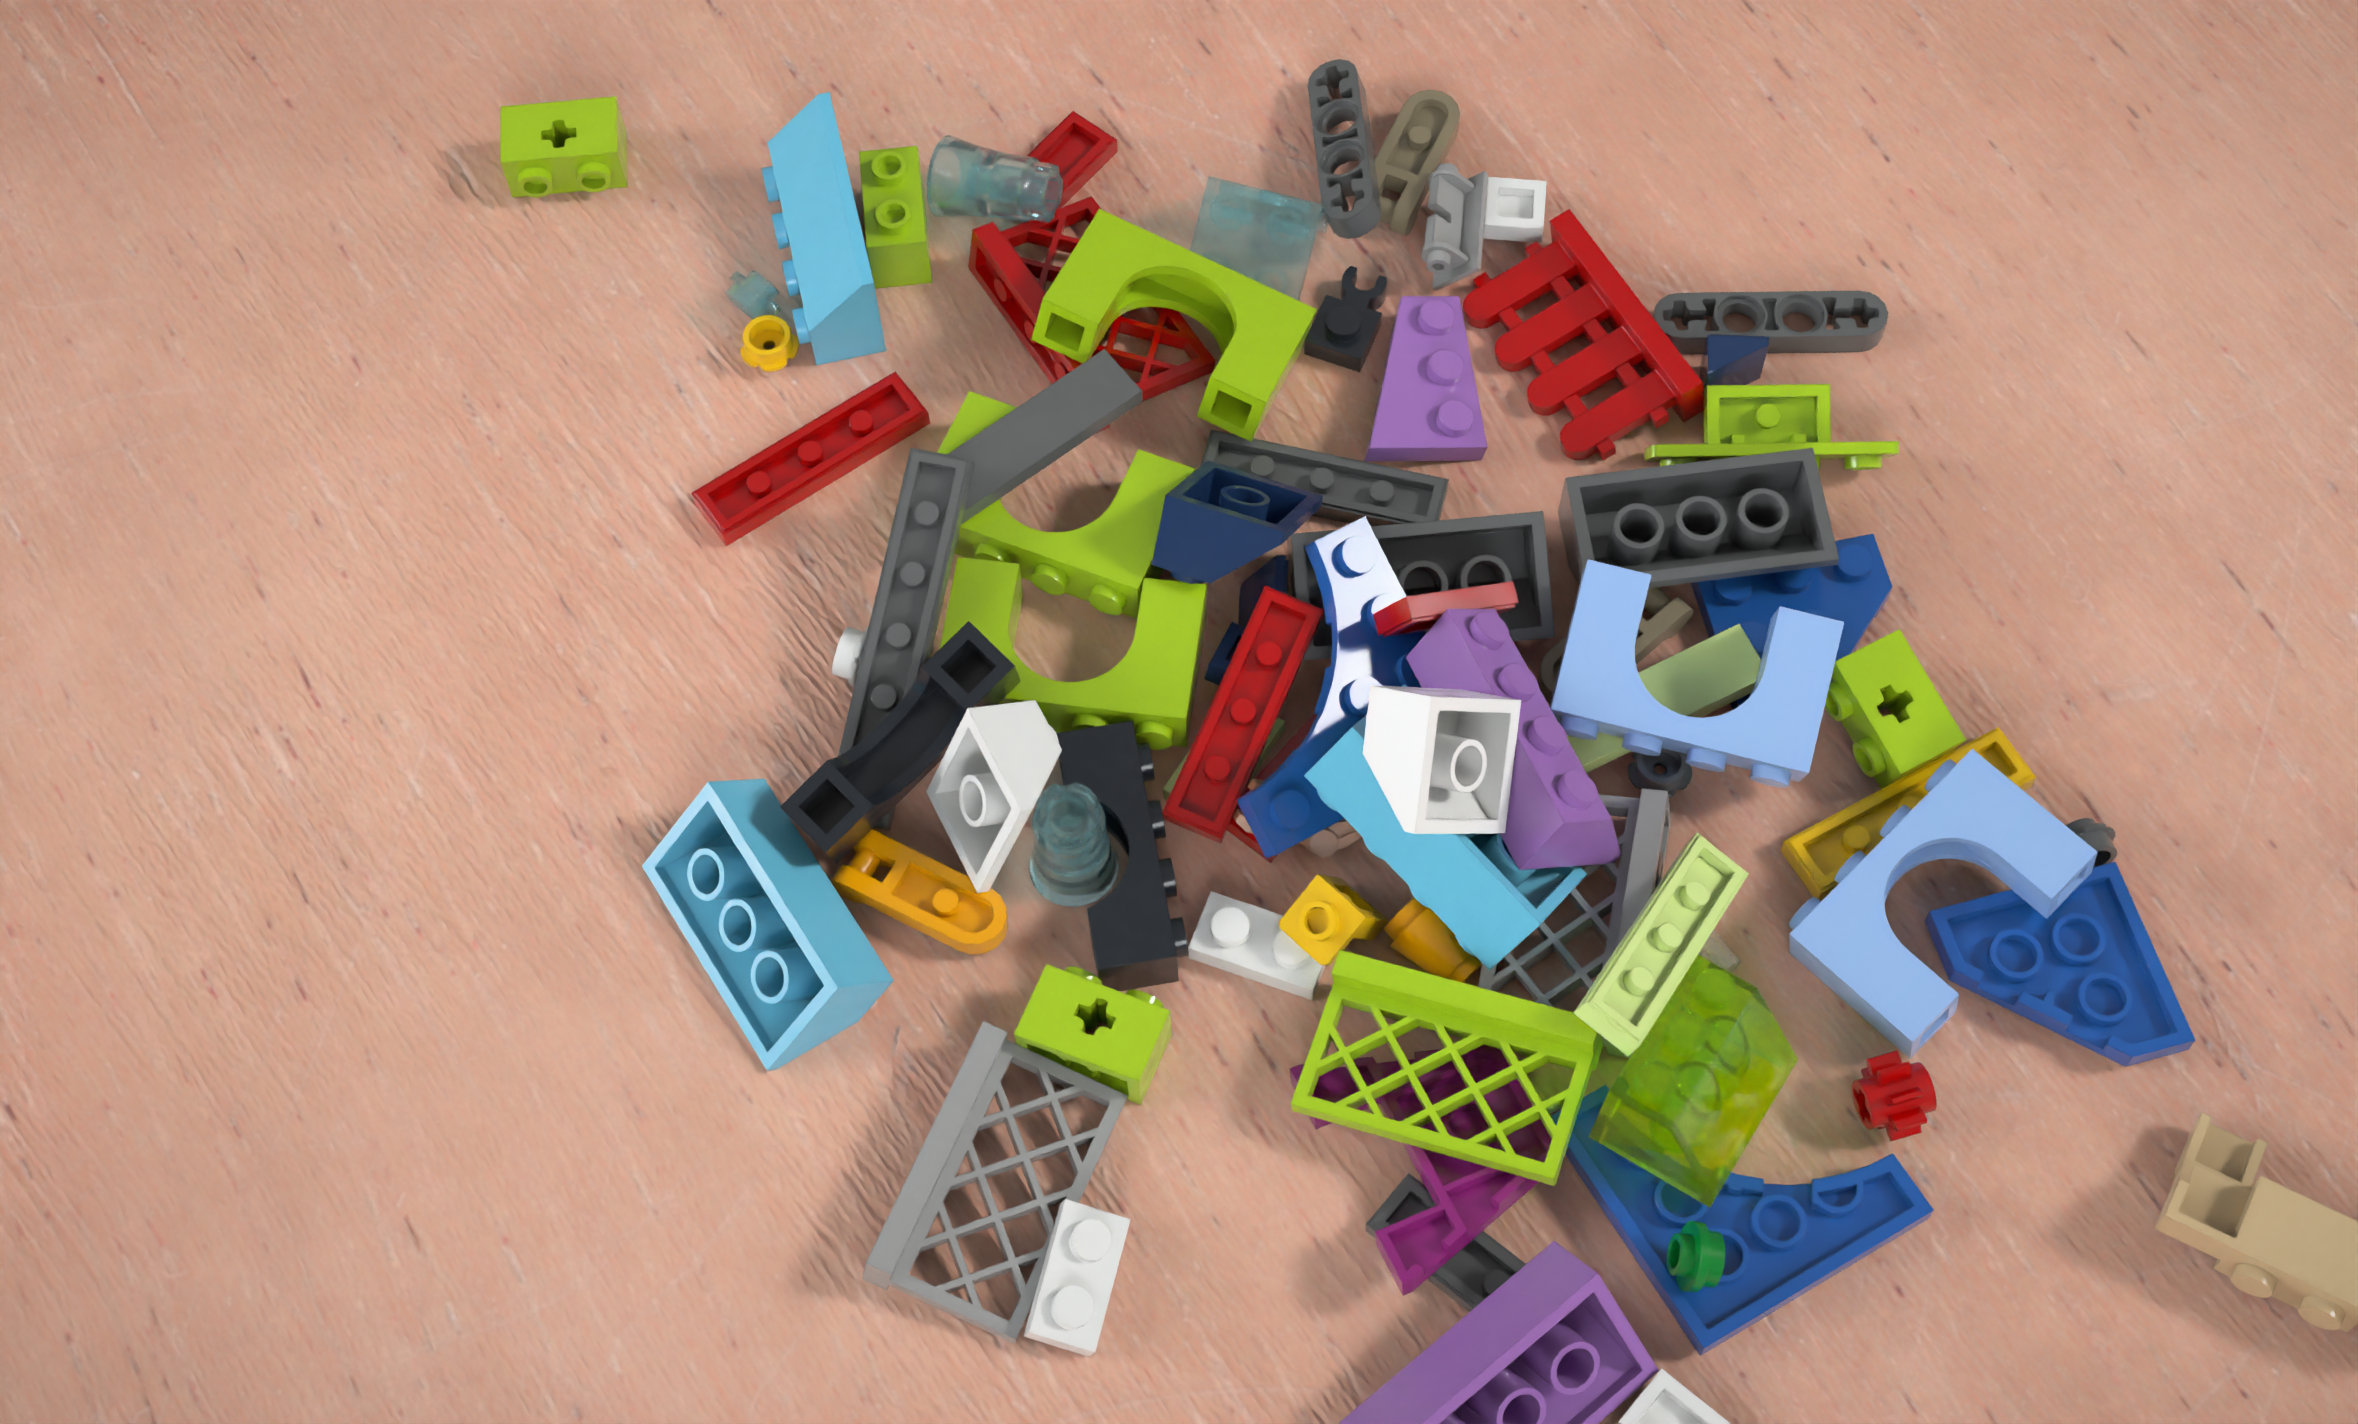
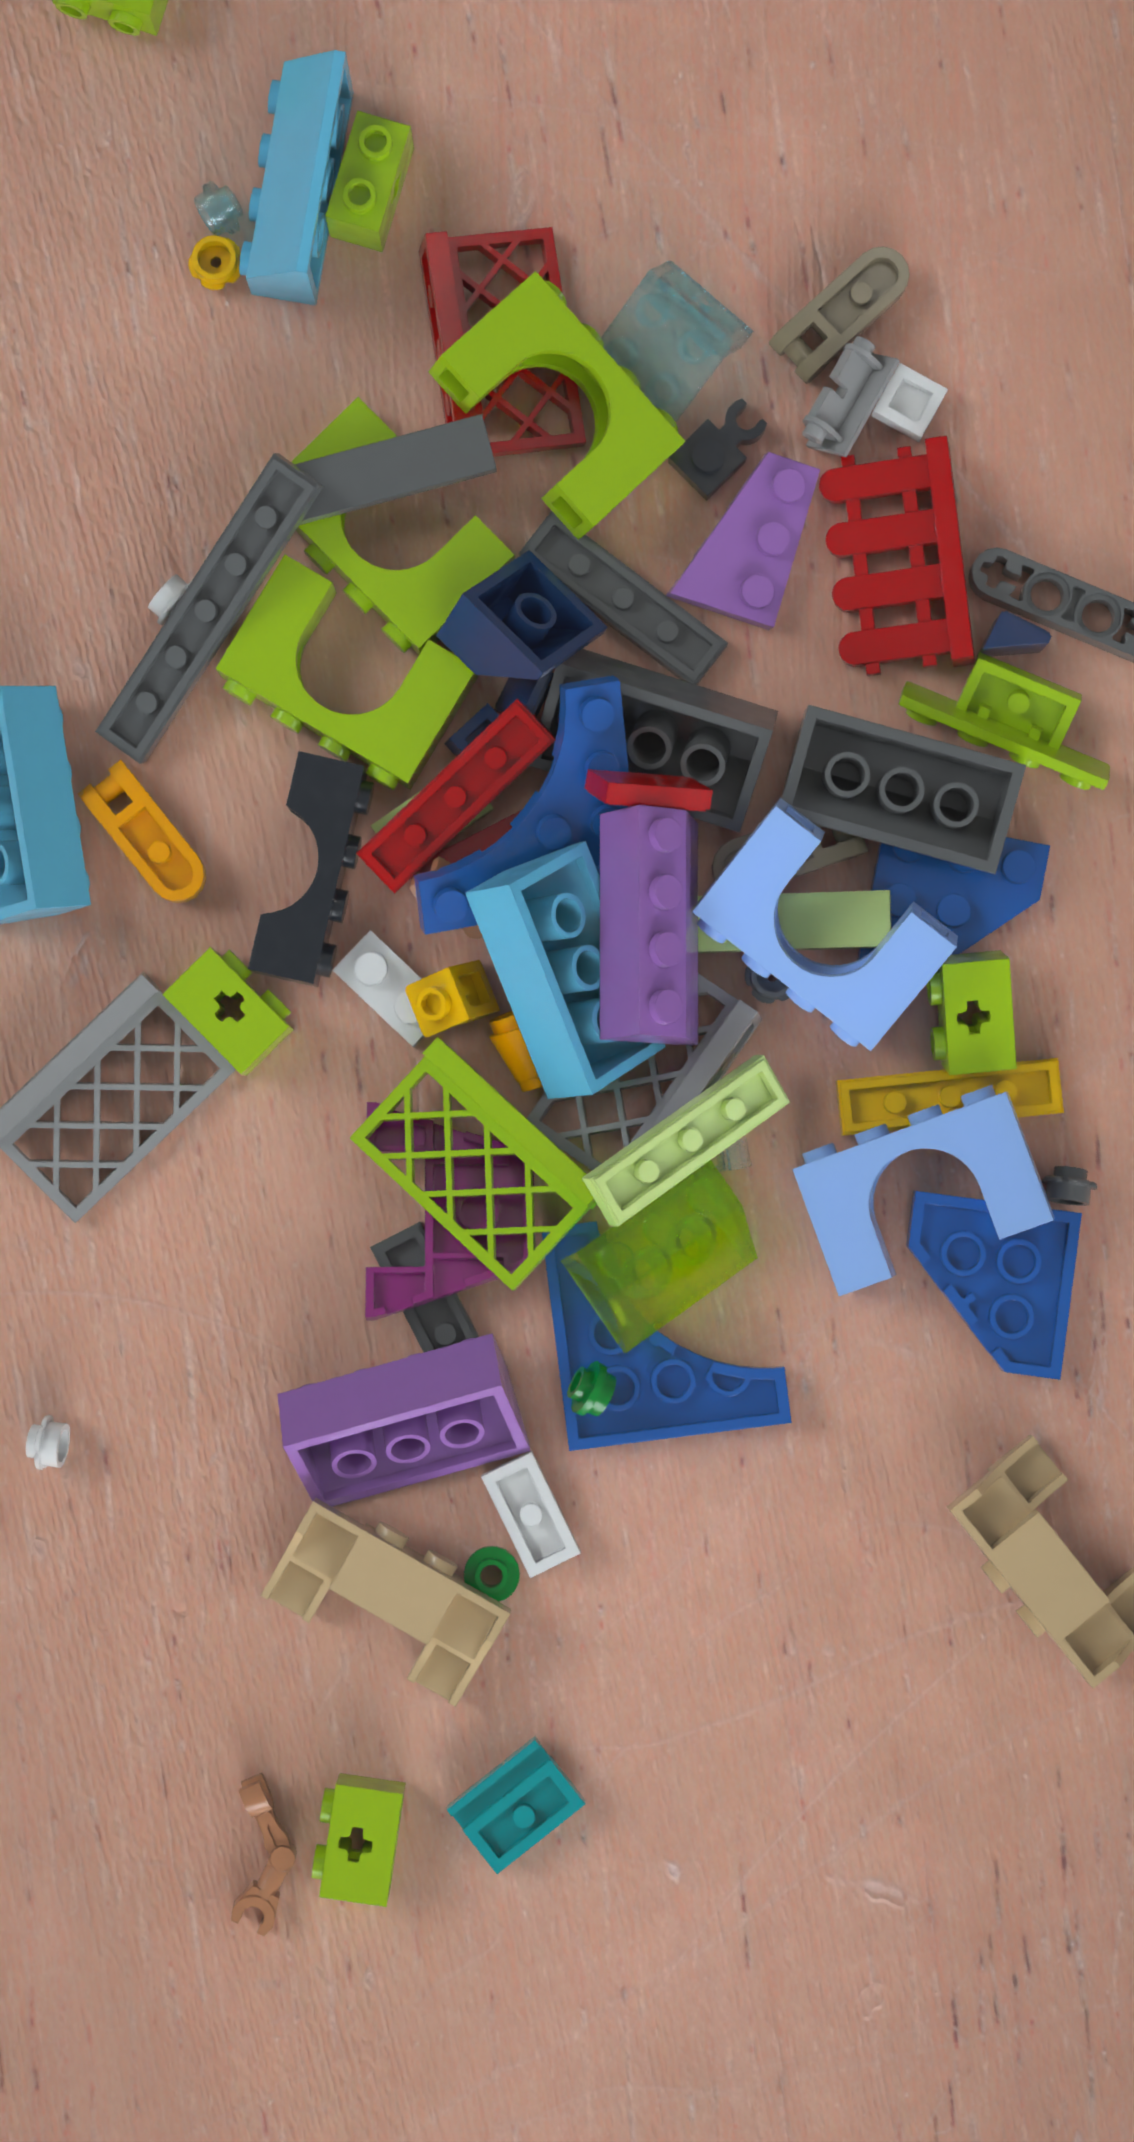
camera: 20 degrees right, 25 degrees up
(810, 458) = (210, 389): red tile -> none
(872, 777) = (166, 716): black arch -> none
(990, 183) = (463, 187): clear light blue plant -> none
(992, 783) = (229, 782): white slope -> none
(1071, 847) = (287, 869): clear light blue plant -> none
(1077, 1278) = (138, 1197): white plate -> none
(1078, 150) = (537, 181): red tile -> none
(1341, 148) = (785, 278): dark grey beam -> none
(1443, 757) = (570, 937): white slope -> none
(1894, 1095) = (809, 1323): red gear -> none

